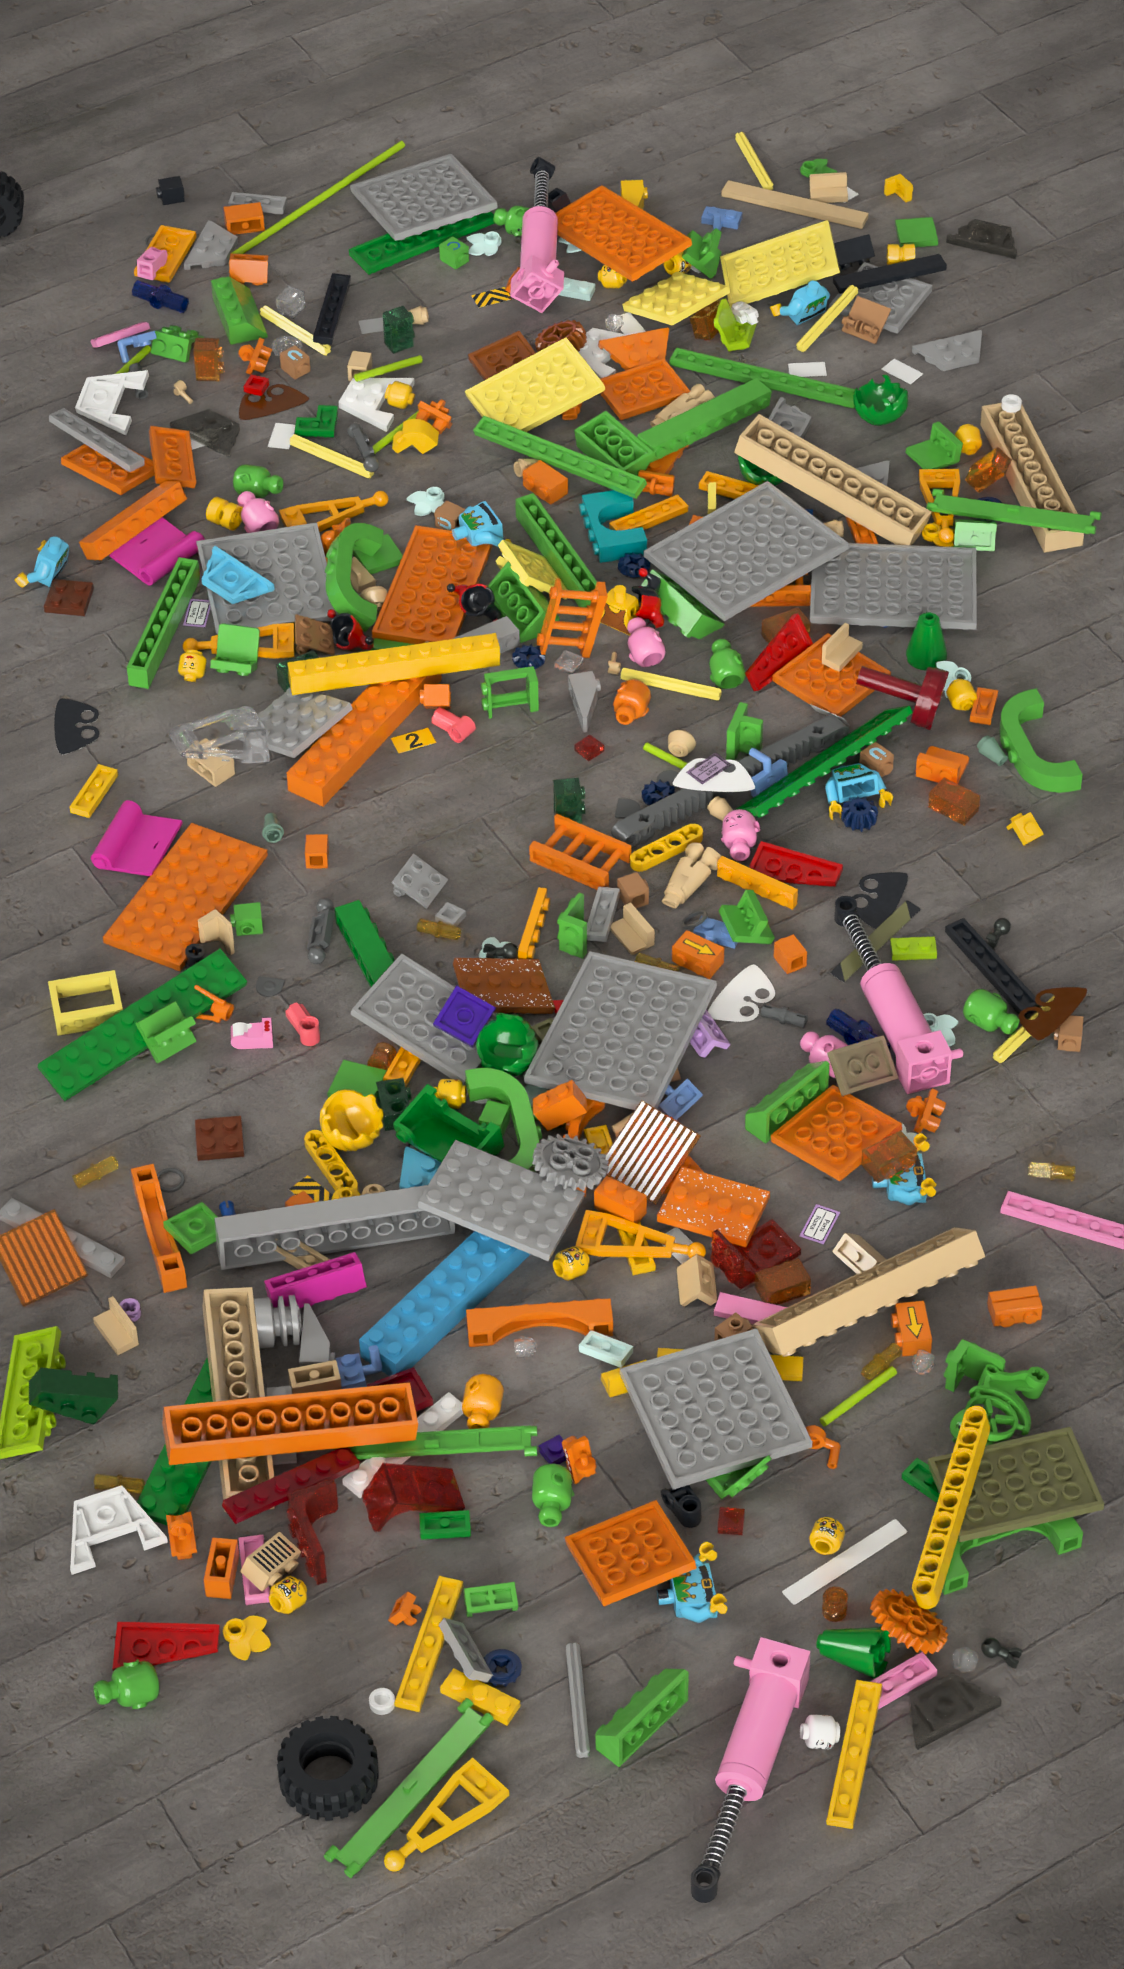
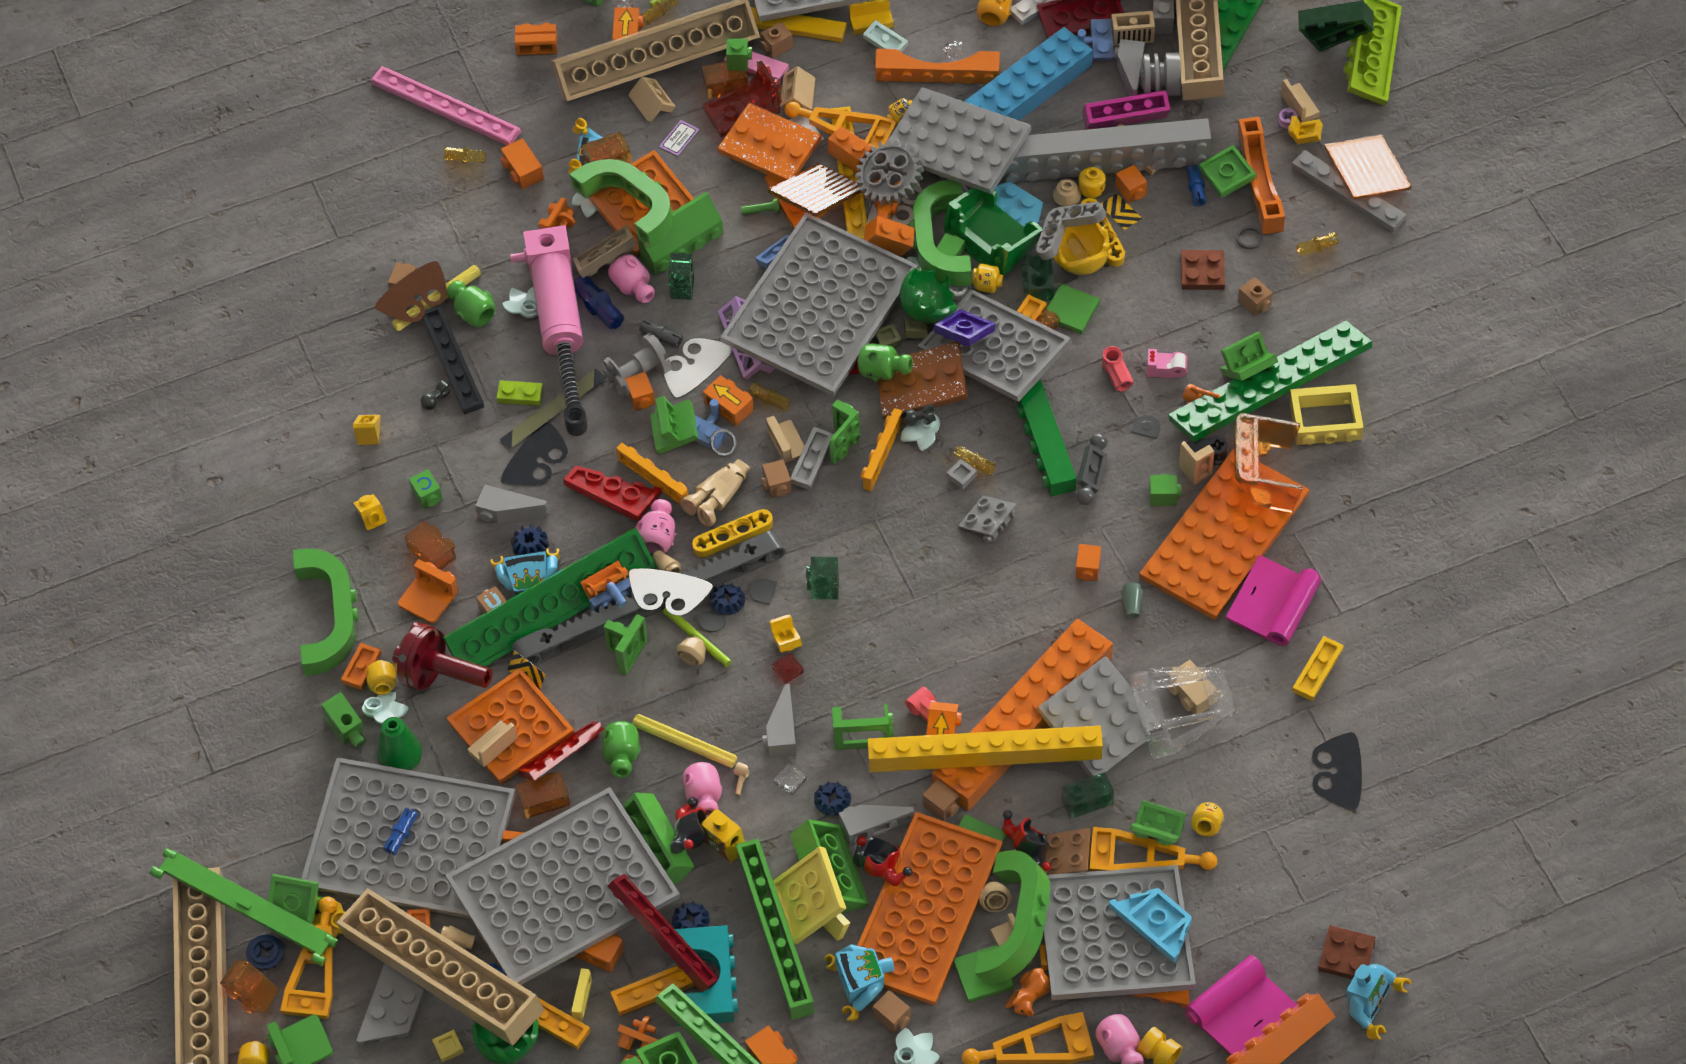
camera: 170 degrees left, 10 degrees up
(104, 1289) = (1305, 131): none -> yellow bracket
(157, 904) = (1253, 440): none -> clear orange windscreen
(161, 1108) = (1255, 296): none -> medium nougat brick
(163, 623) = (1236, 882): bright green brick -> none
(197, 613) = (1201, 911): sticker -> none
(369, 1126) = (1062, 217): none -> light grey beam
(413, 740) = (974, 704): yellow sticker -> none
(545, 986) = (882, 362): none -> bright green piece
(579, 869) = (824, 510): orange fence -> none
(588, 627) = (765, 794): orange fence -> none
(595, 765) = (785, 634): none -> yellow bracket
(631, 701) = (733, 709): orange piece -> none
(651, 521) = (663, 932): none -> dark red plate
(708, 768) = (671, 598): clear purple sticker -> none
(709, 1151) = (761, 207): none -> bright green piece
(769, 779) = (598, 582): none -> orange hinge
(769, 1279) = (738, 54): none -> bright green brick
(774, 1053) = (681, 276): none -> clear green brick
(786, 972) = (644, 360): none -> light grey piece
(839, 1107) = (620, 174): none -> bright green arch
(890, 842) = (507, 506): none -> light grey slope
(900, 577) = (400, 831): none -> blue pin
(976, 848) = (425, 489): none -> bright green brick
(983, 656) = (343, 720): none -> bright green torso
(984, 1164) = (521, 163): none -> orange brick
(990, 748) = (372, 609): sand green cone -> none
(1054, 893) = (367, 429): none -> yellow slope

